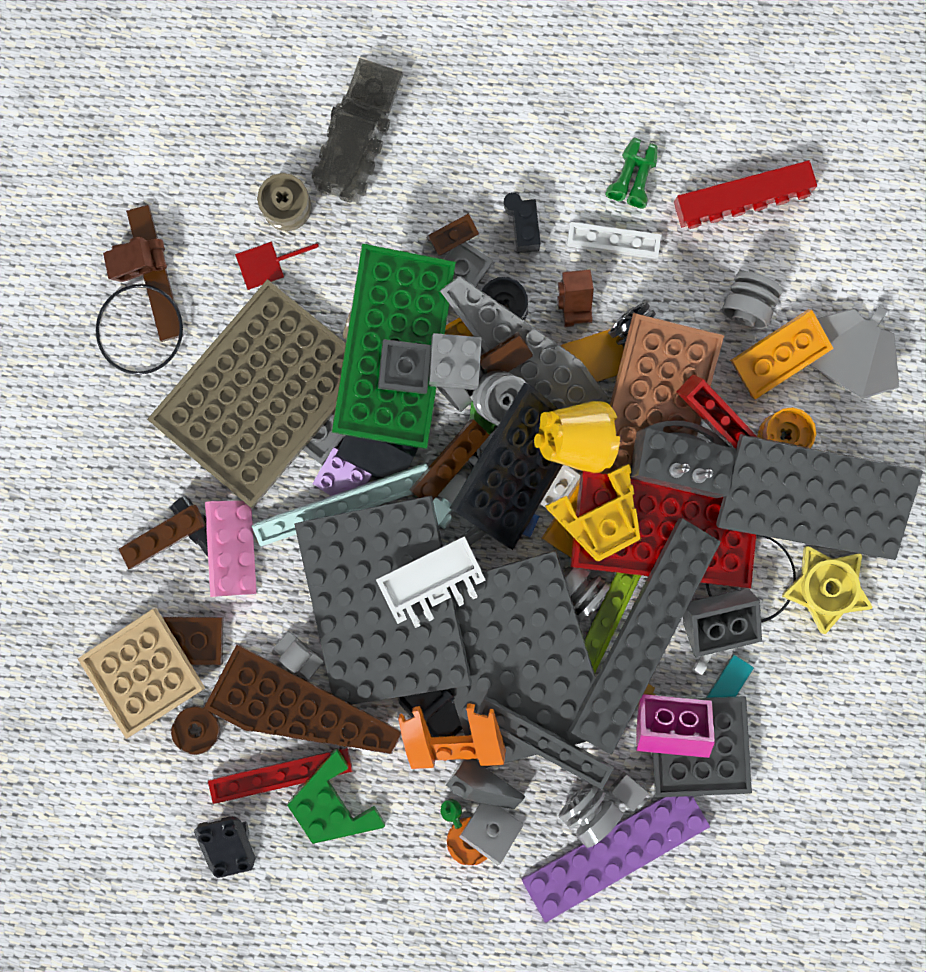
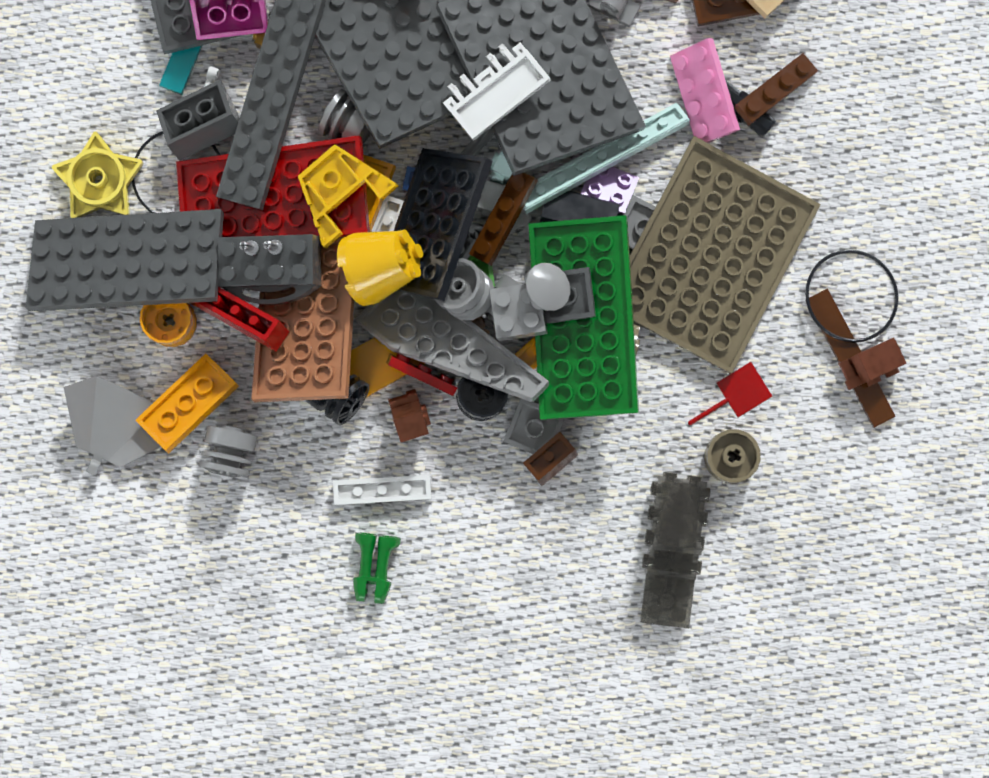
camera: 170 degrees right, 0 degrees up
(422, 373) = (547, 287): none -> light grey dish
(506, 354) = (469, 335): reddish brown panel -> none
(524, 222) = (478, 487): black hinge -> none
(557, 334) = (422, 373): none -> red plate
(609, 616) = (314, 99): lime tile -> none
(745, 194) = (254, 566): red brick -> none

